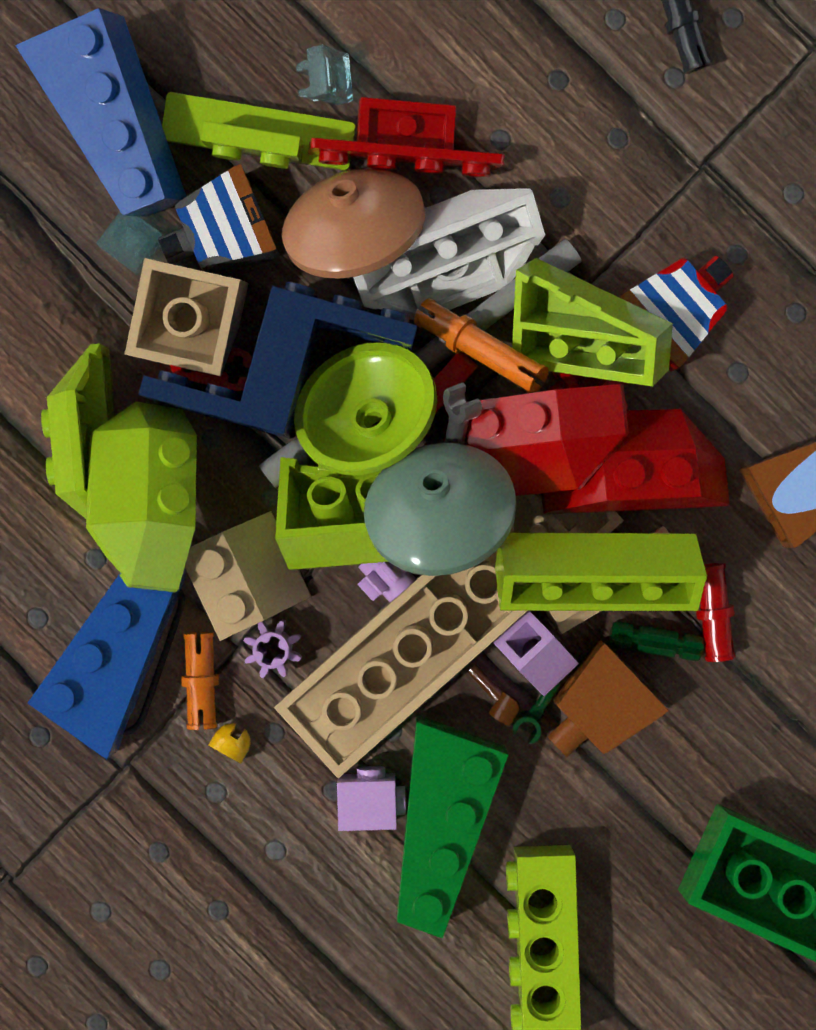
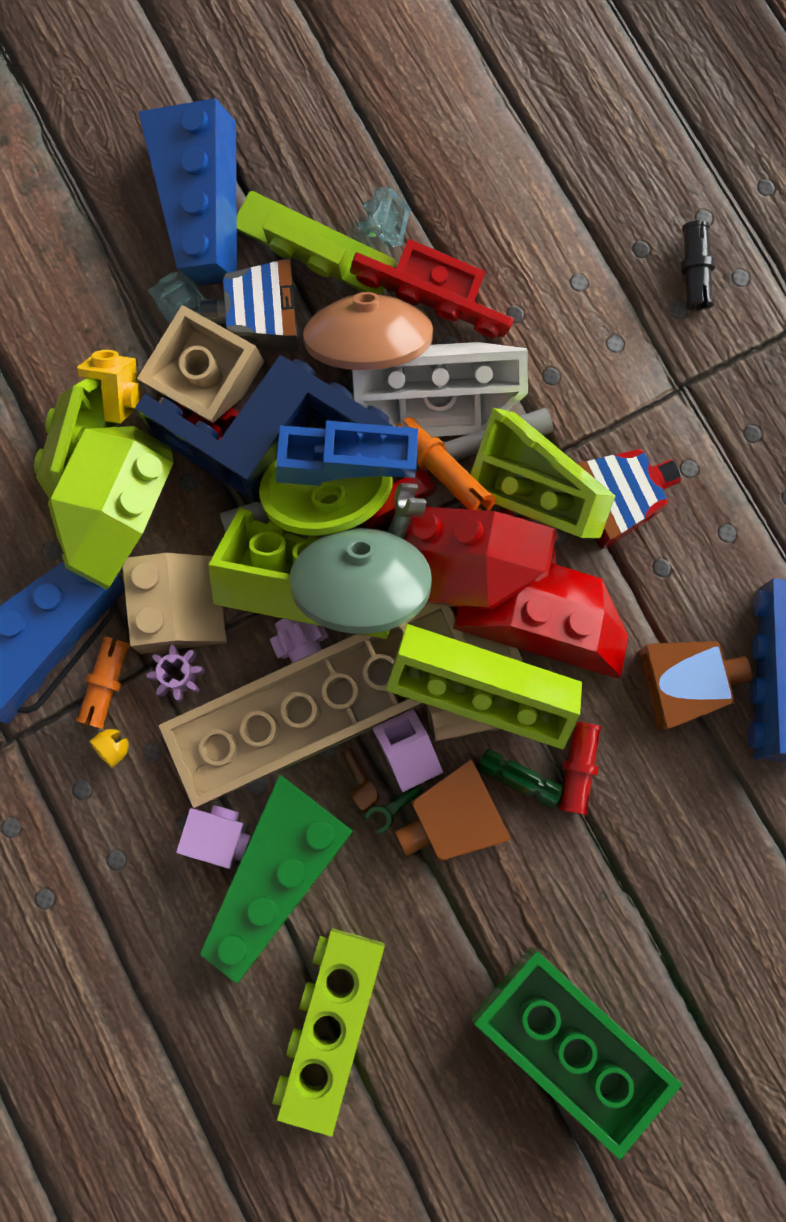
camera: 15 degrees right, 10 degrees down
(105, 362) = (118, 383): none -> yellow bracket
(378, 373) = (344, 452): none -> blue slope

